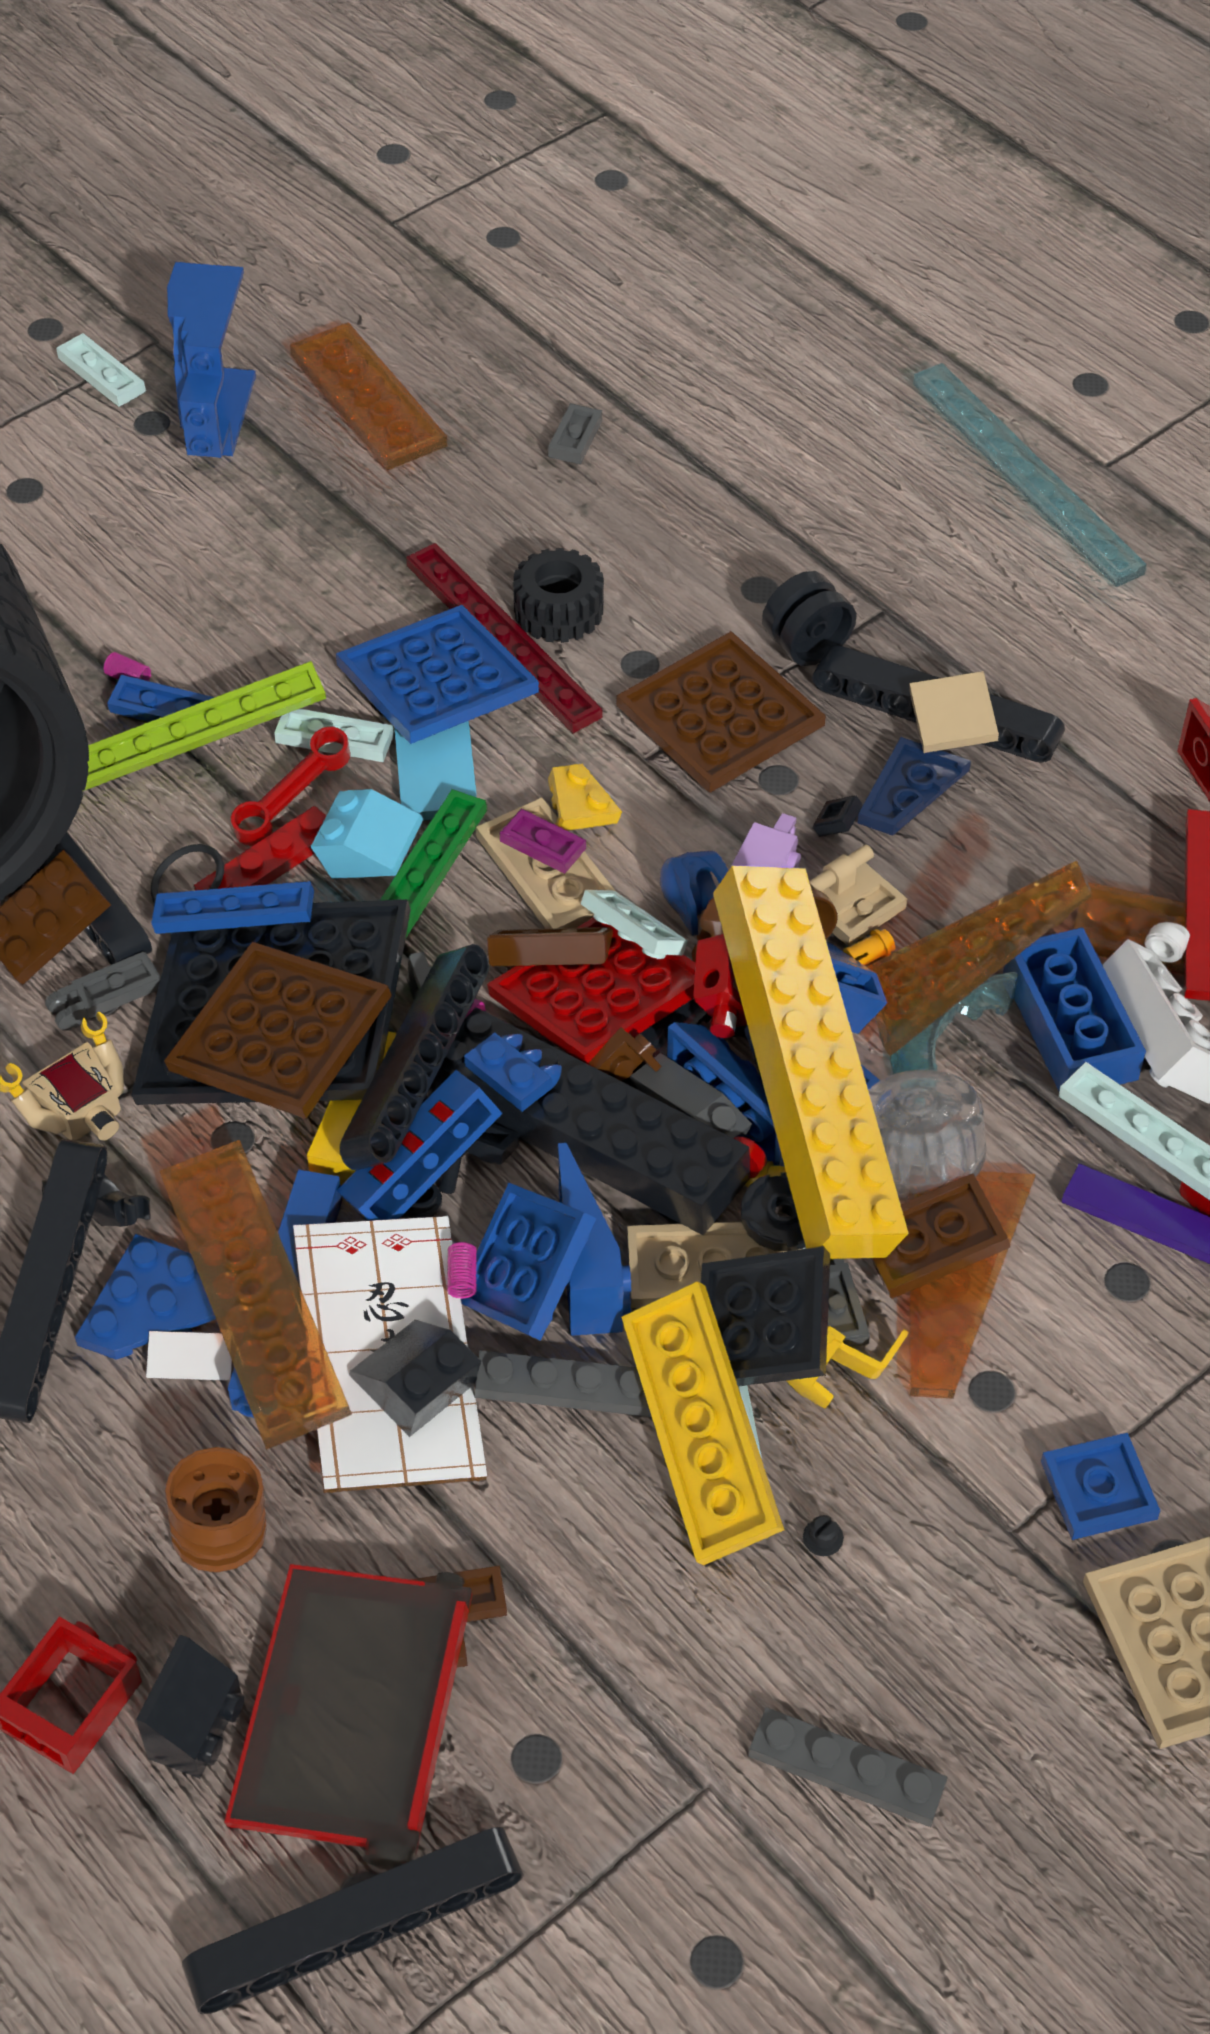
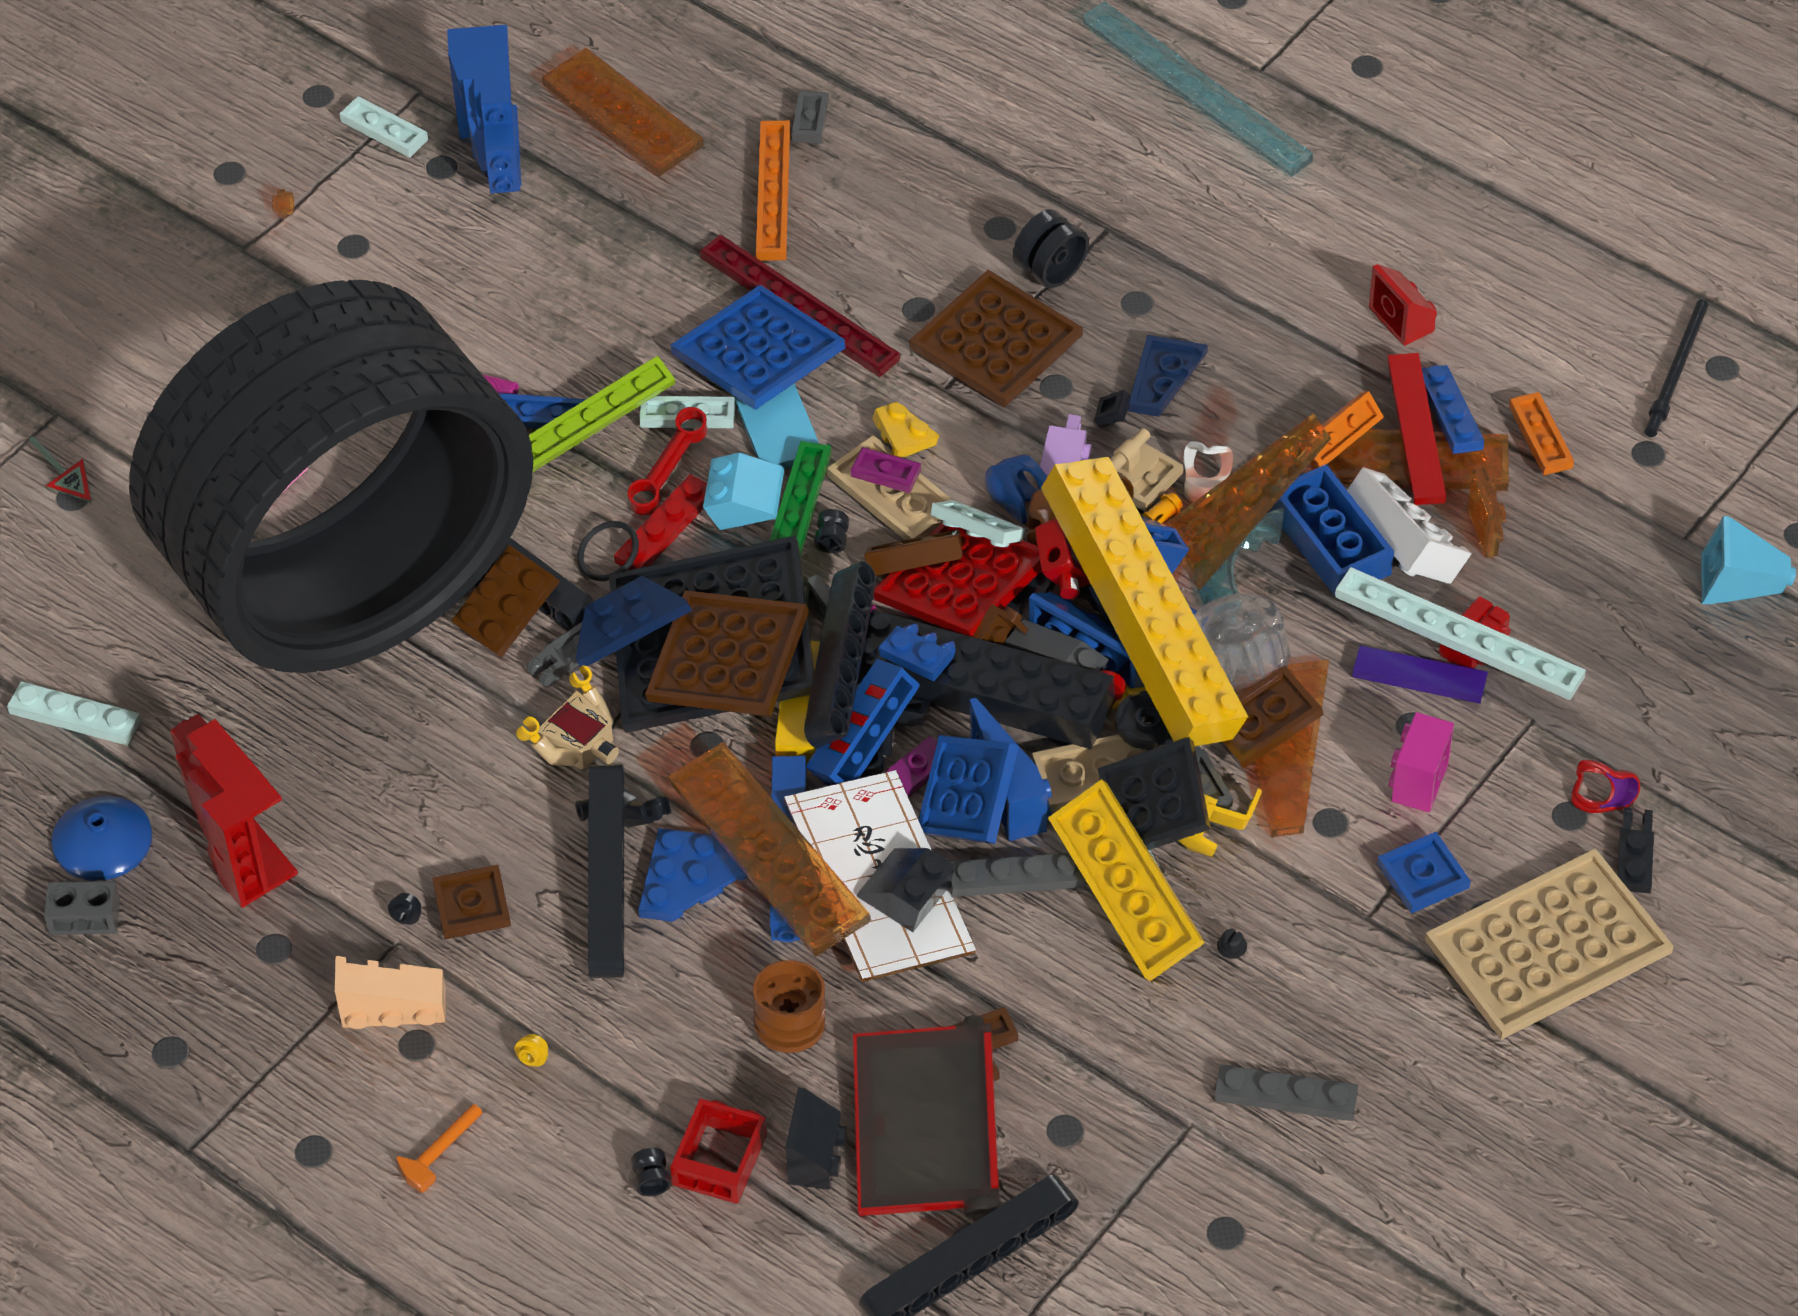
camera: 10 degrees left, 0 degrees up
(172, 963) = (626, 617): none -> dark blue wing
(188, 1356) = (728, 907): white sticker -> none
(233, 907) = (660, 564): blue plate -> none
(459, 903) = (831, 531): none -> black wheel
(460, 1276) = (916, 807): dark pink piece -> none
(472, 1217) = (915, 766): none -> magenta plate
(509, 506) = (773, 191): none -> orange plate
(558, 595) = (838, 263): black tyre -> none
(886, 688) = (1170, 301): black beam -> none
(917, 923) = (1197, 485): none -> piece
(953, 712) = (1186, 307): tan tile -> none
(1118, 887) = (1348, 426): none -> orange plate
(1126, 1334) = (1421, 761): none -> dark pink brick
(1167, 941) = (1393, 463): white tile -> none

